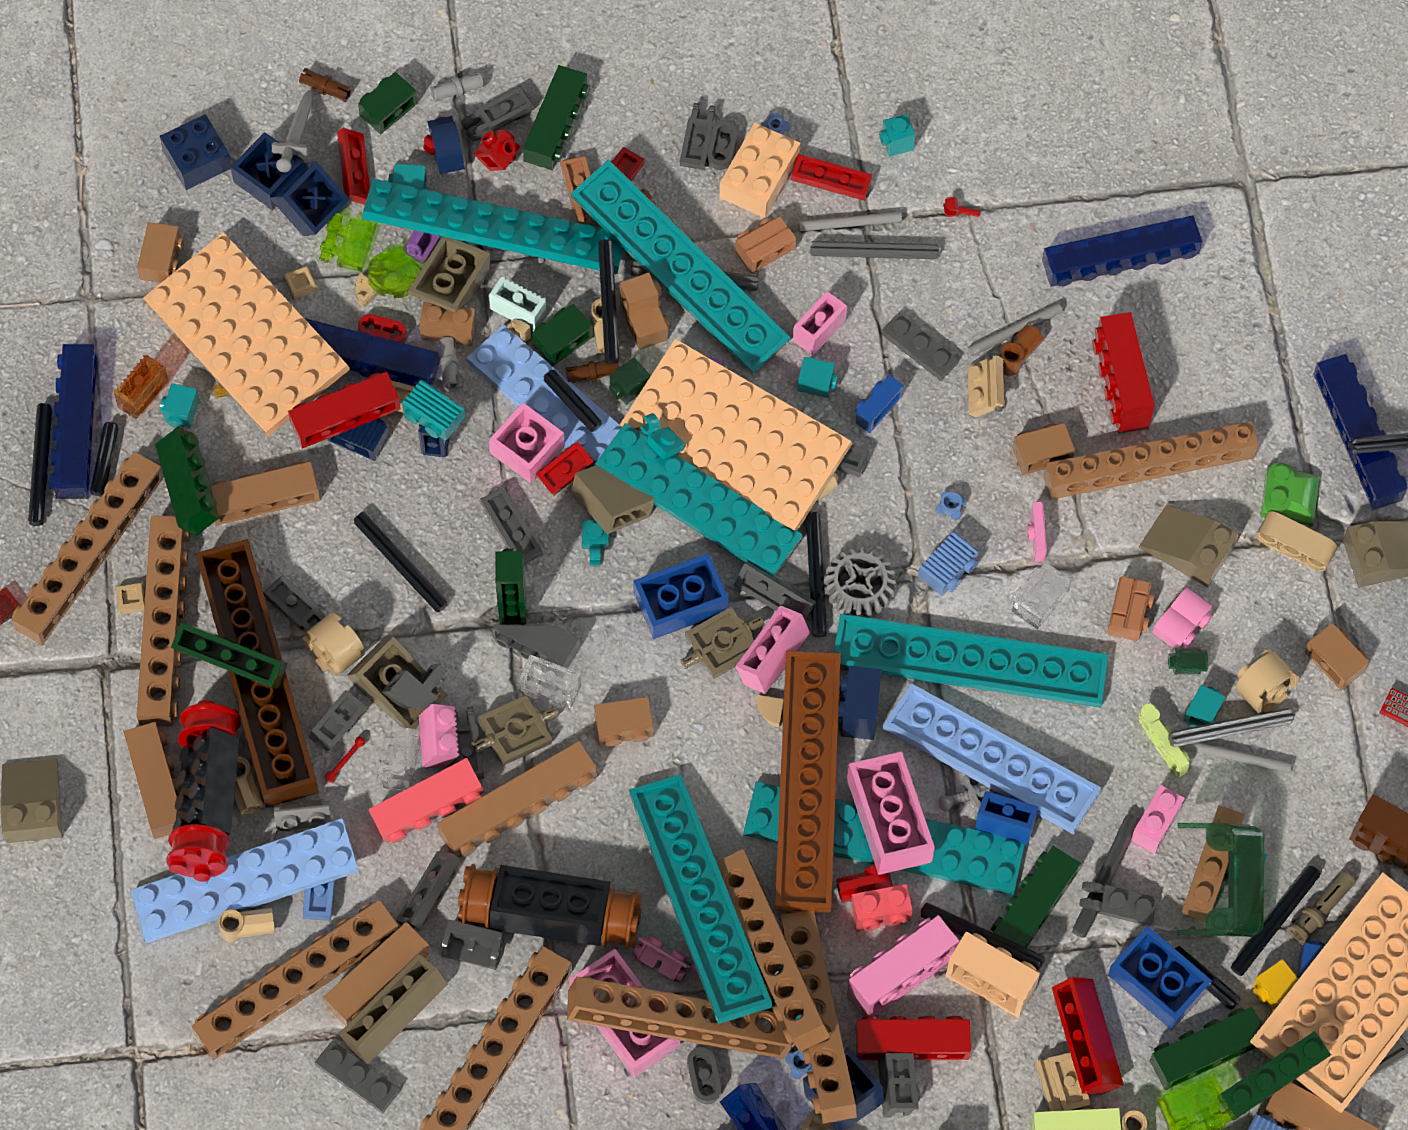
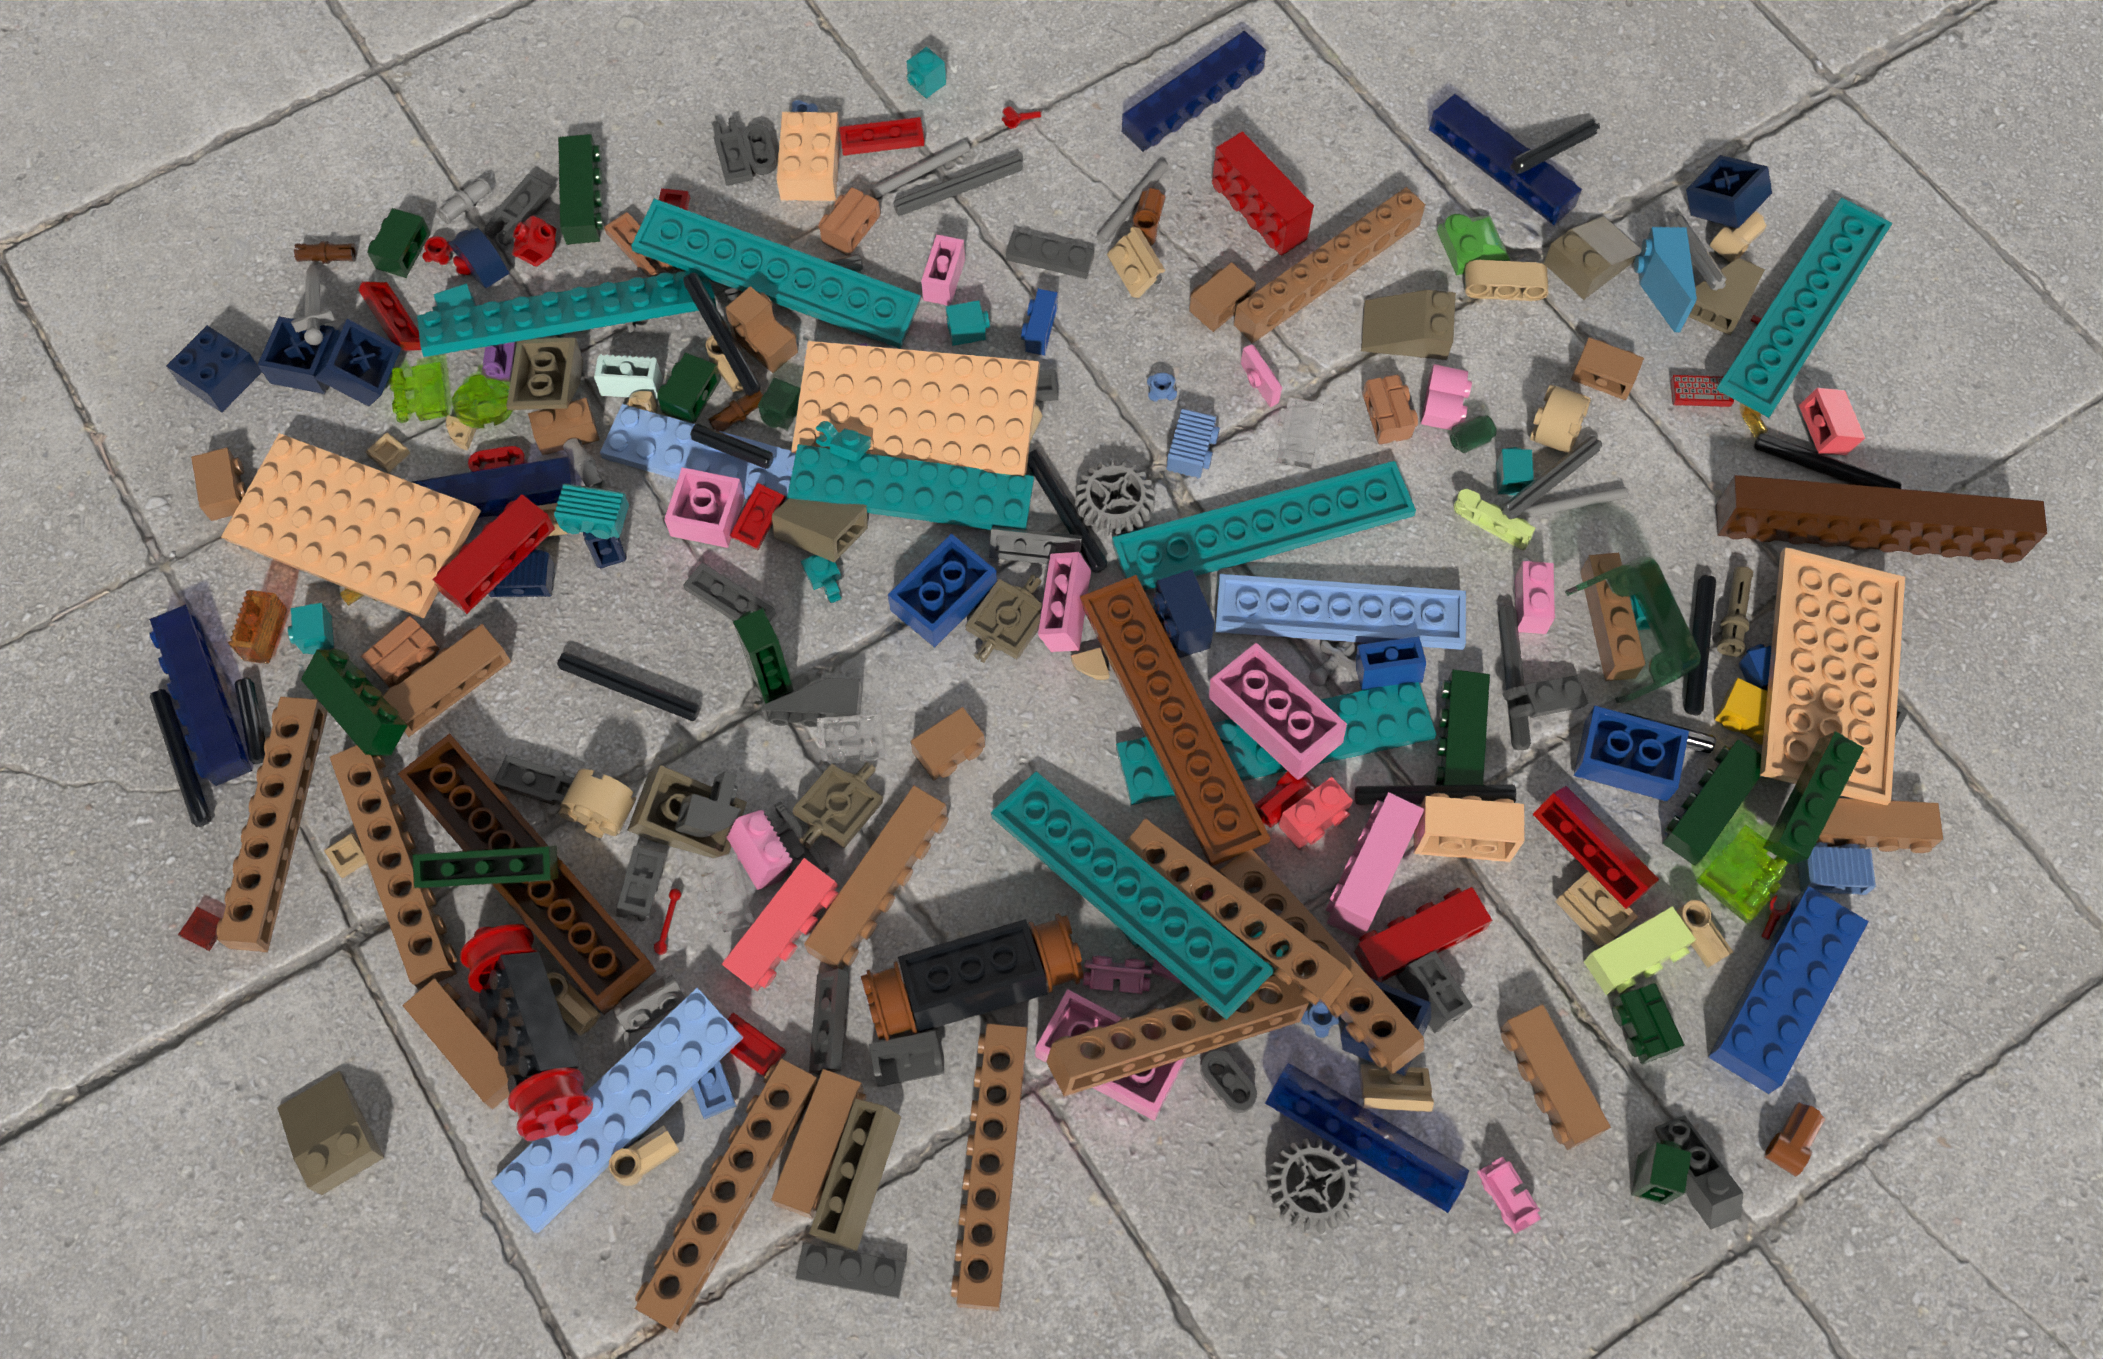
camera: 25 degrees left, 0 degrees up
(239, 456) = (400, 652): none -> nougat brick
(364, 884) = (755, 1048): none -> red tile
(411, 118) = (432, 249): none -> red plate

